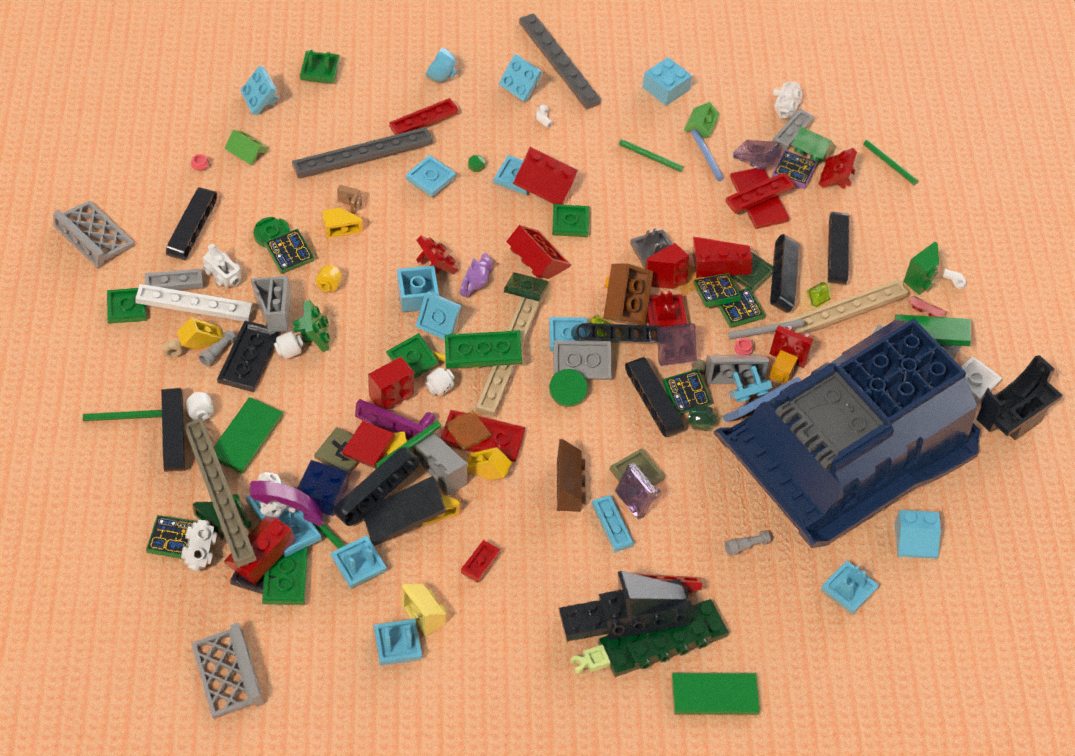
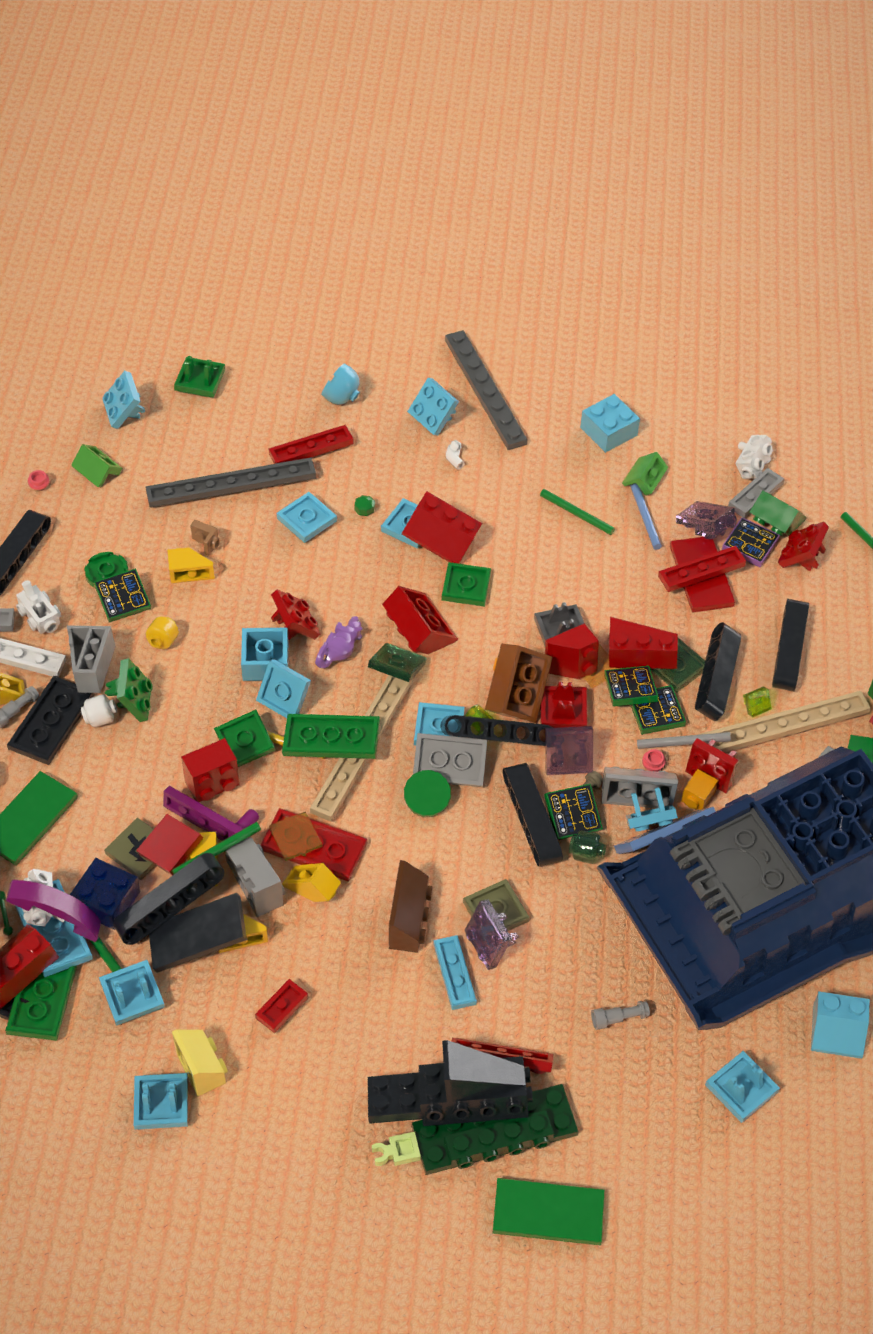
camera: 10 degrees right, 0 degrees up
(440, 381) = (272, 772): white head -> none

